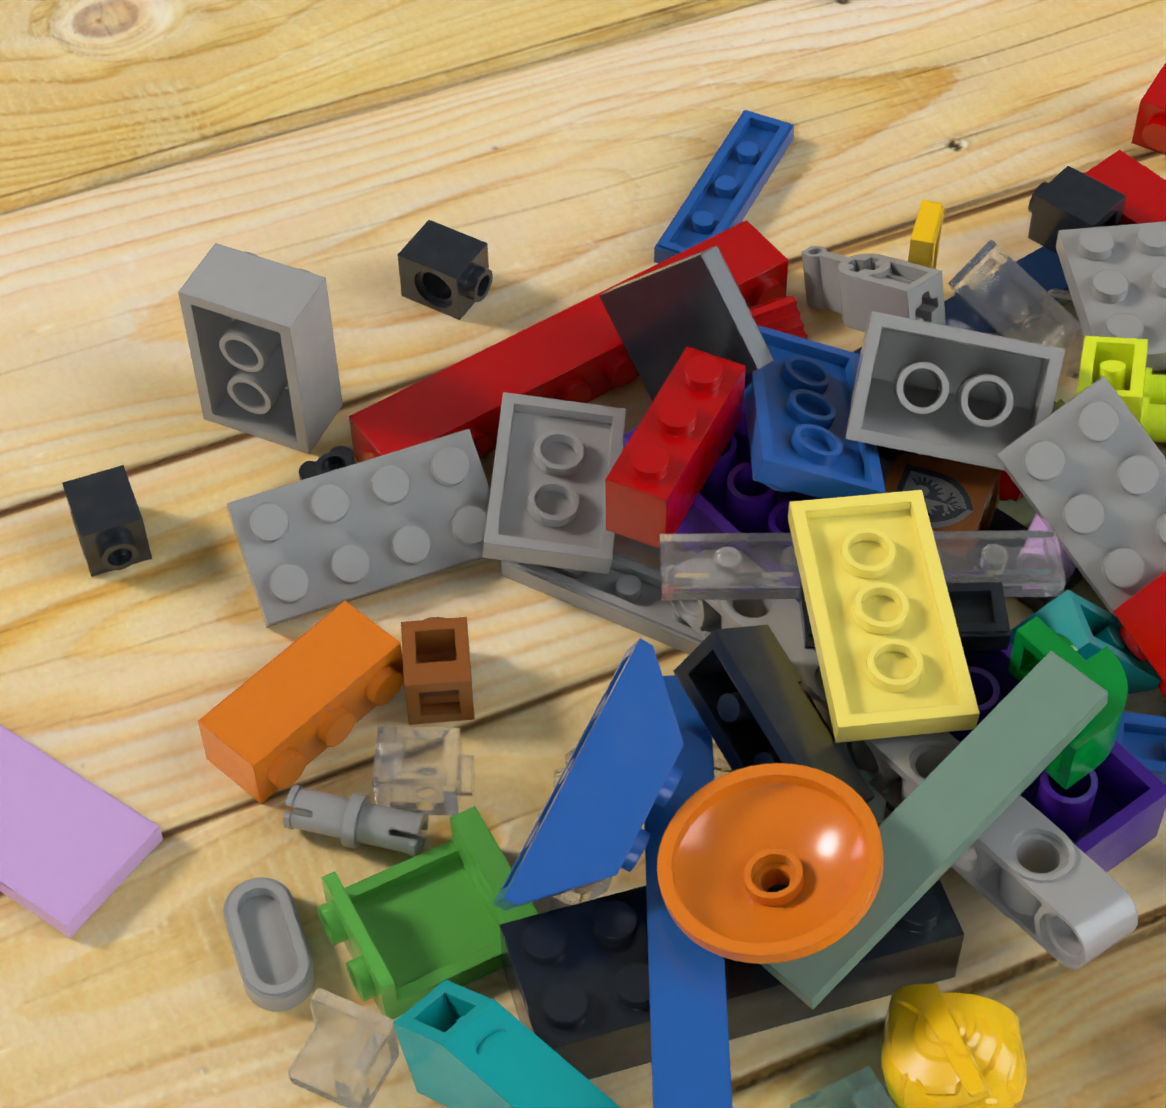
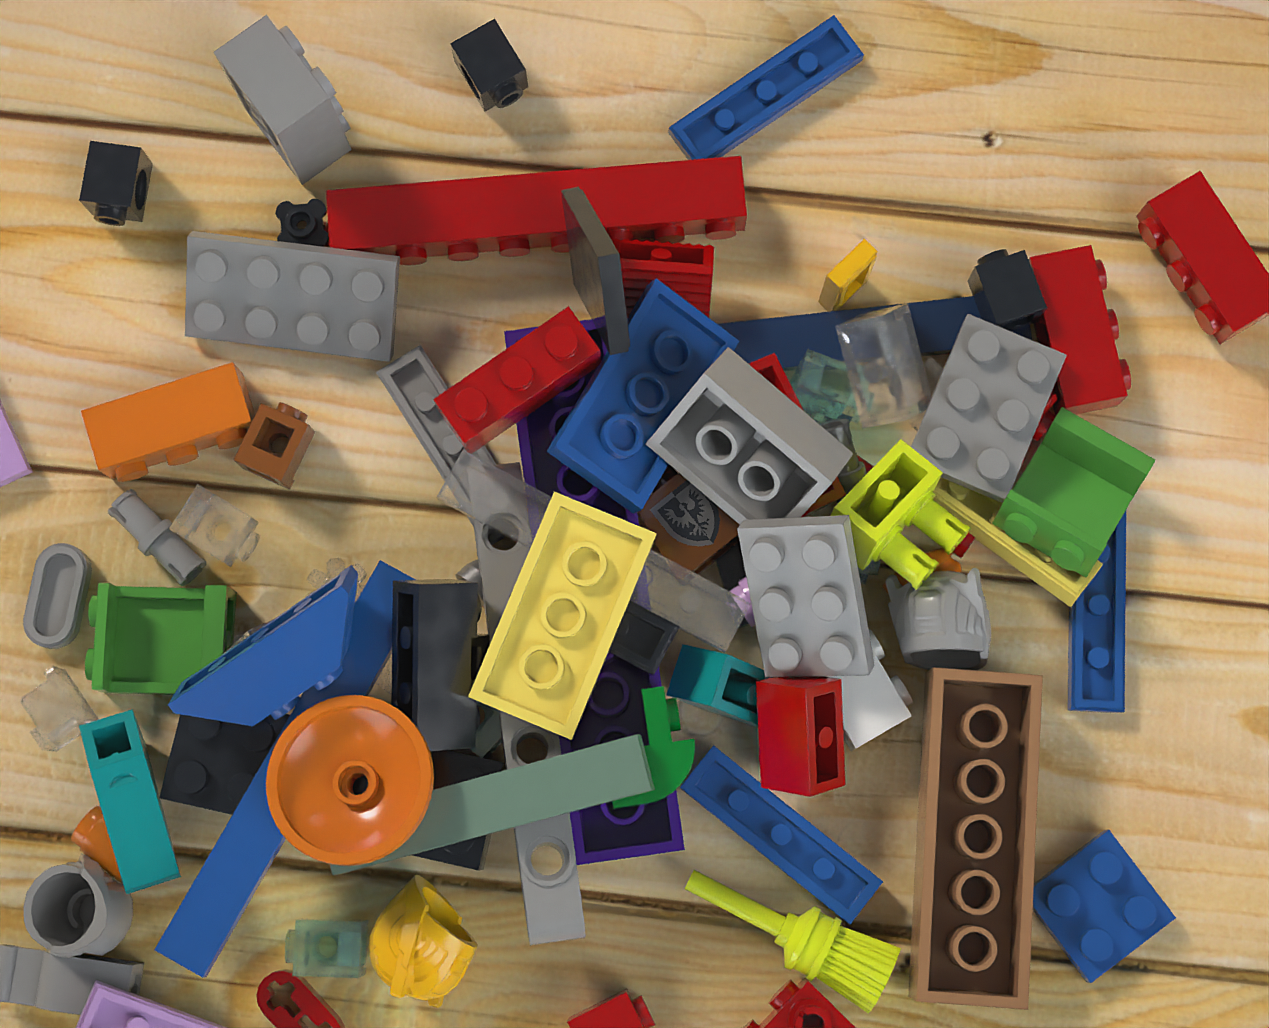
camera: 30 degrees right, 30 degrees up
(551, 483) = (439, 332): light grey plate -> none
(872, 284) = (793, 290): light grey piece -> none

